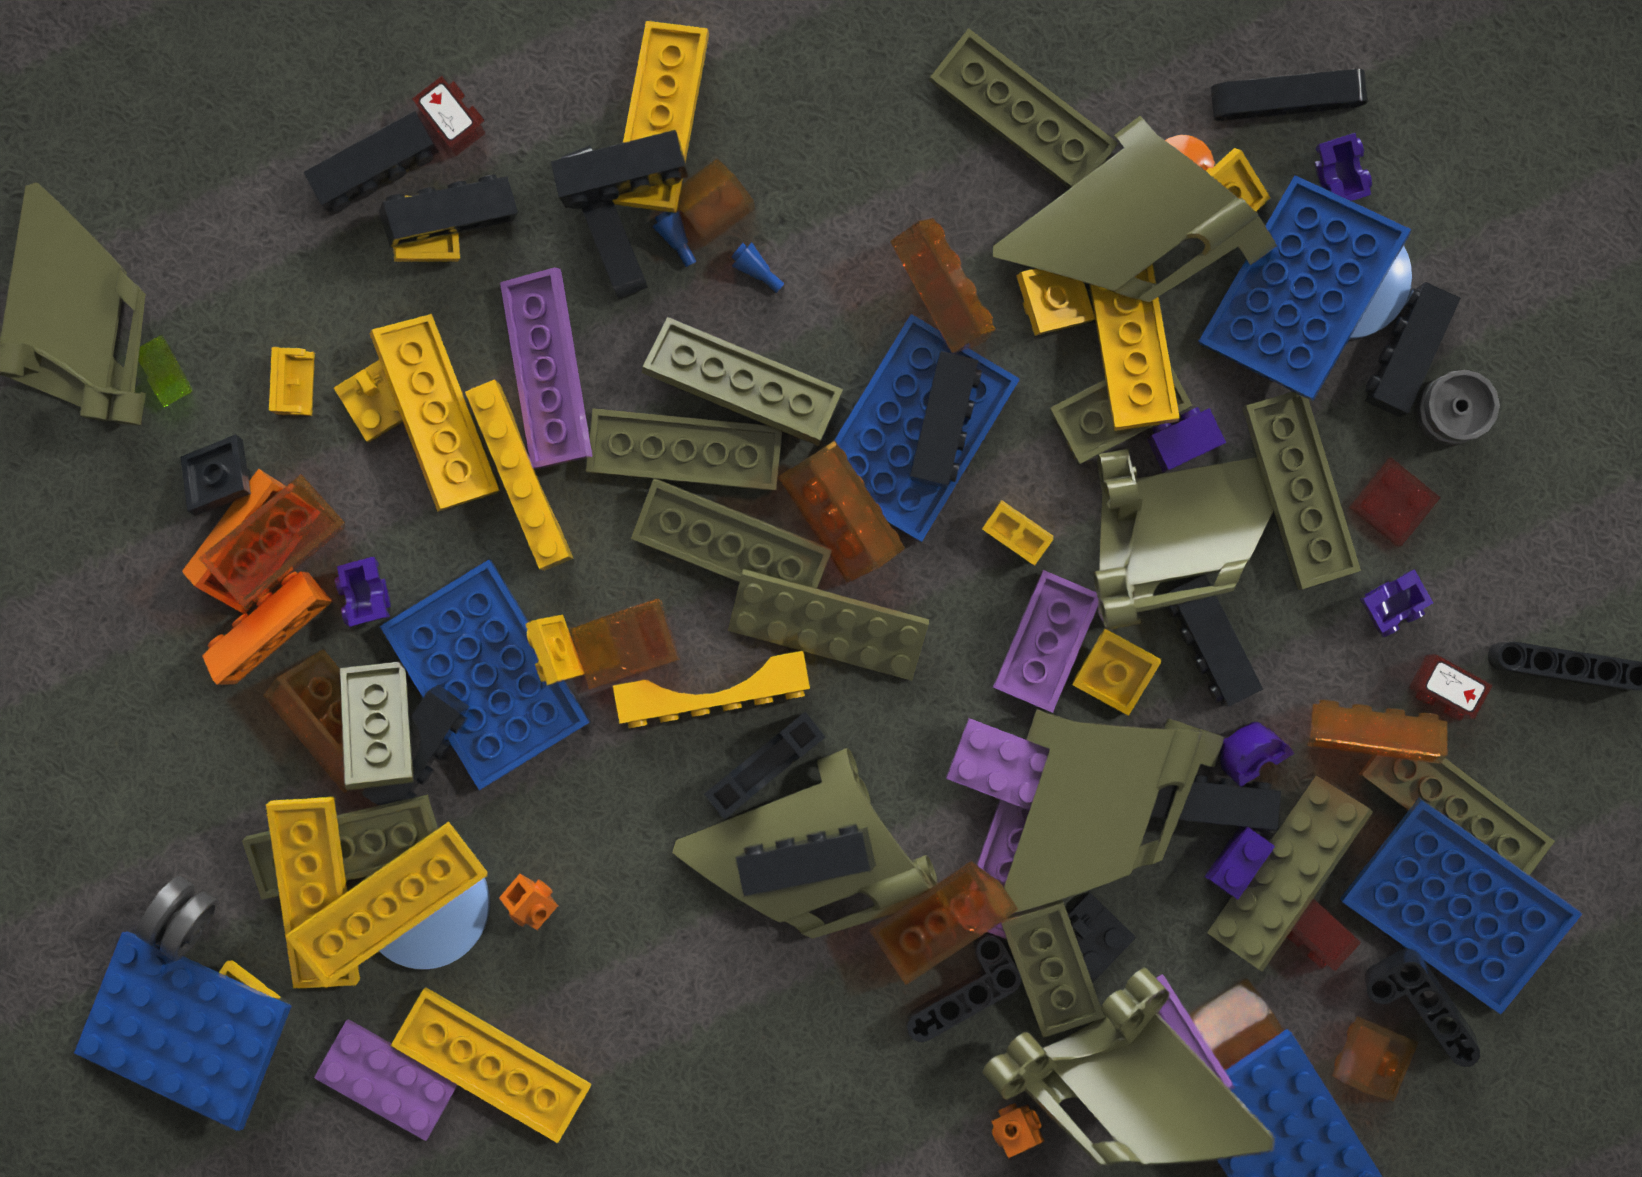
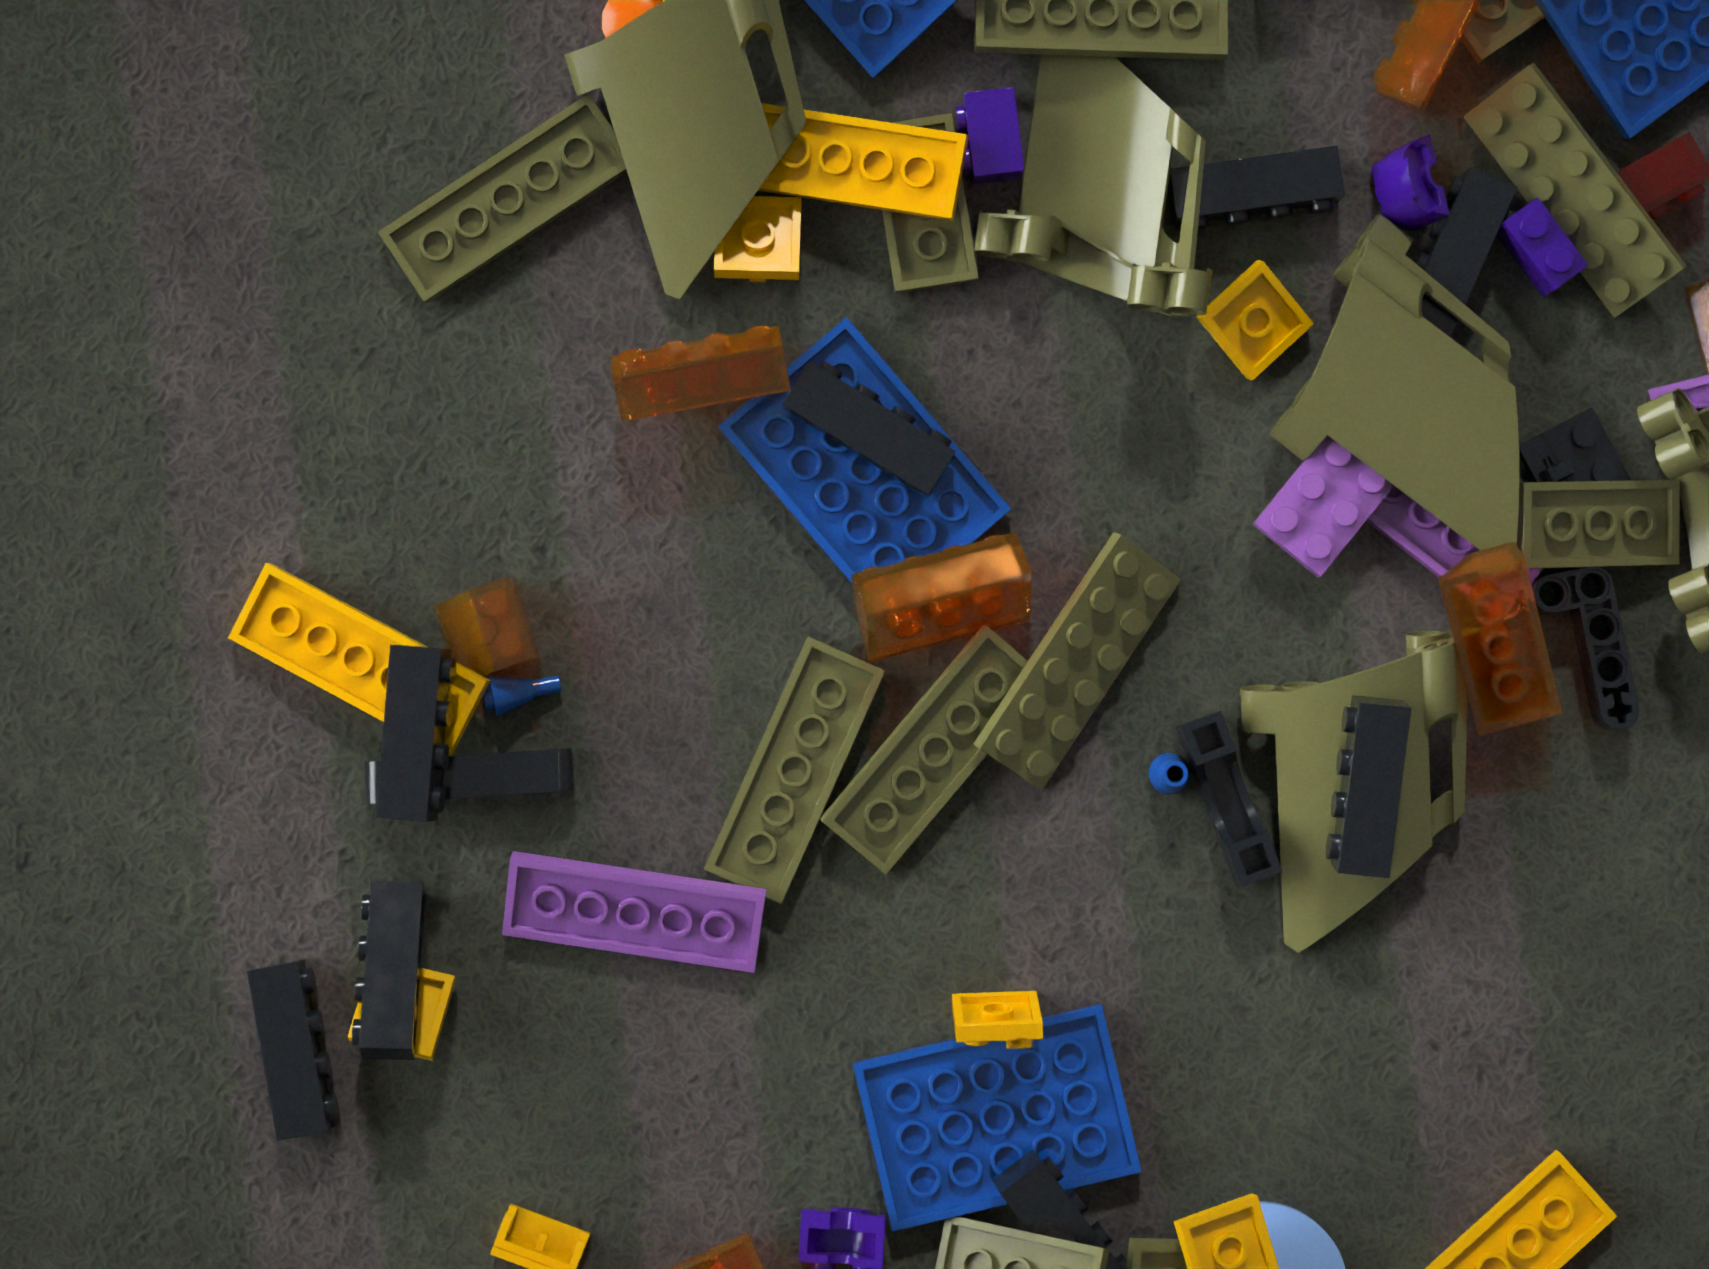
camera: 75 degrees left, 0 degrees up
(370, 401) = (597, 1140): yellow hinge -> none
(434, 412) = (641, 1072): yellow plate -> none
(449, 115) = (264, 929): brick -> none
(518, 475) = (758, 991): yellow arch -> none
(533, 906) = (1303, 1154): orange brick -> none
(625, 643) = (1017, 925): clear orange slope -> none
(646, 700) = (1097, 922): yellow arch -> none
(742, 381) = (733, 667): olive plate -> none
(751, 262) = (584, 606): blue cone -> none
(779, 715) = (1158, 773): none -> blue cone
(1018, 532) = (1039, 384): yellow hinge -> none
(1047, 641) = (1187, 394): medium lavender plate -> none

